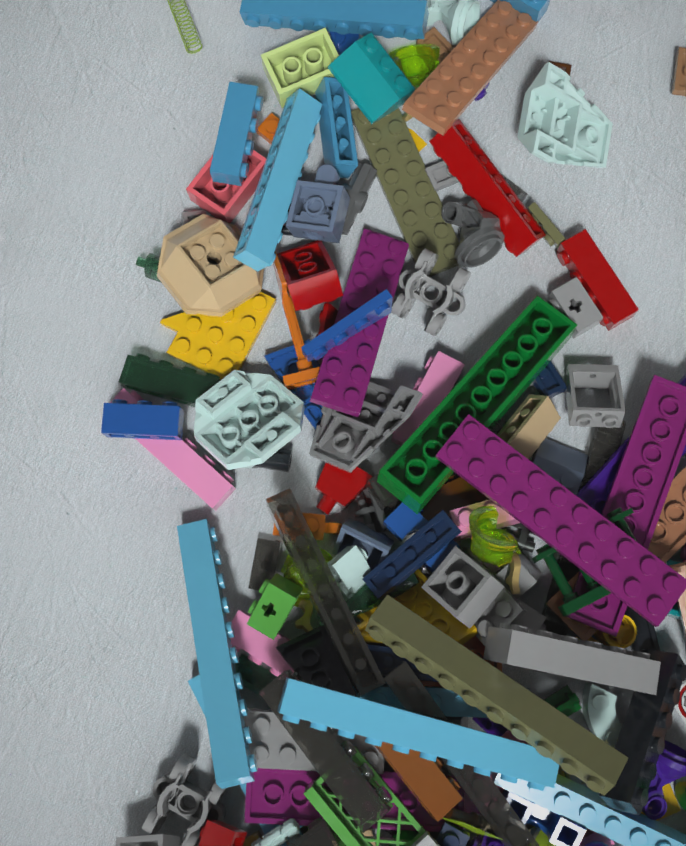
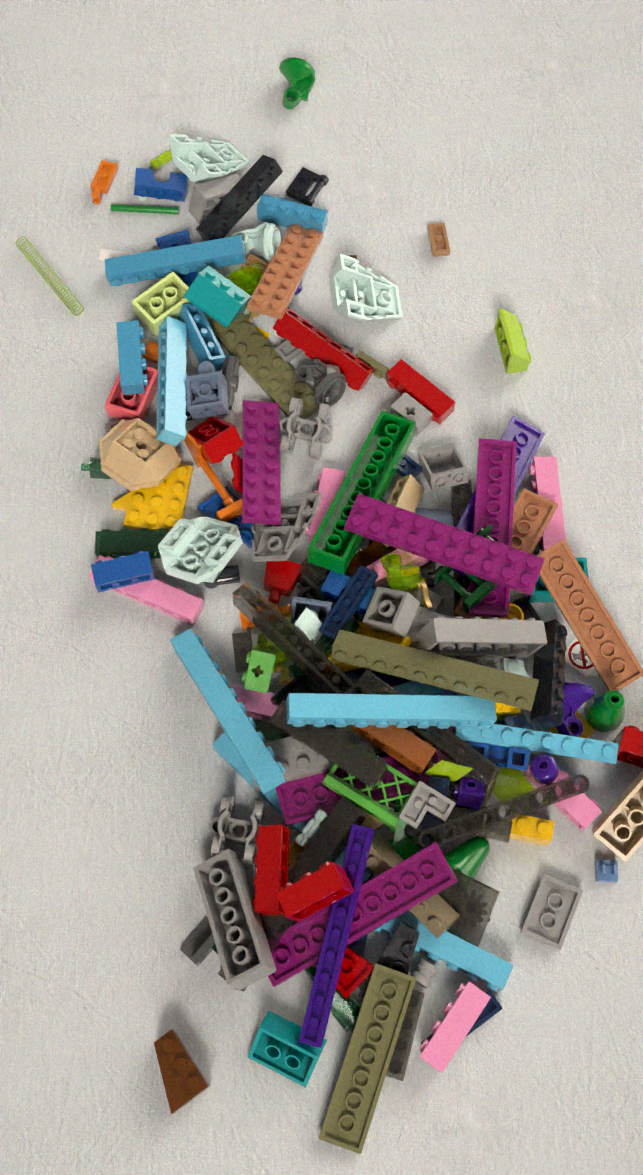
camera: 25 degrees left, 10 degrees down
(350, 325) = (259, 458): blue wing -> none

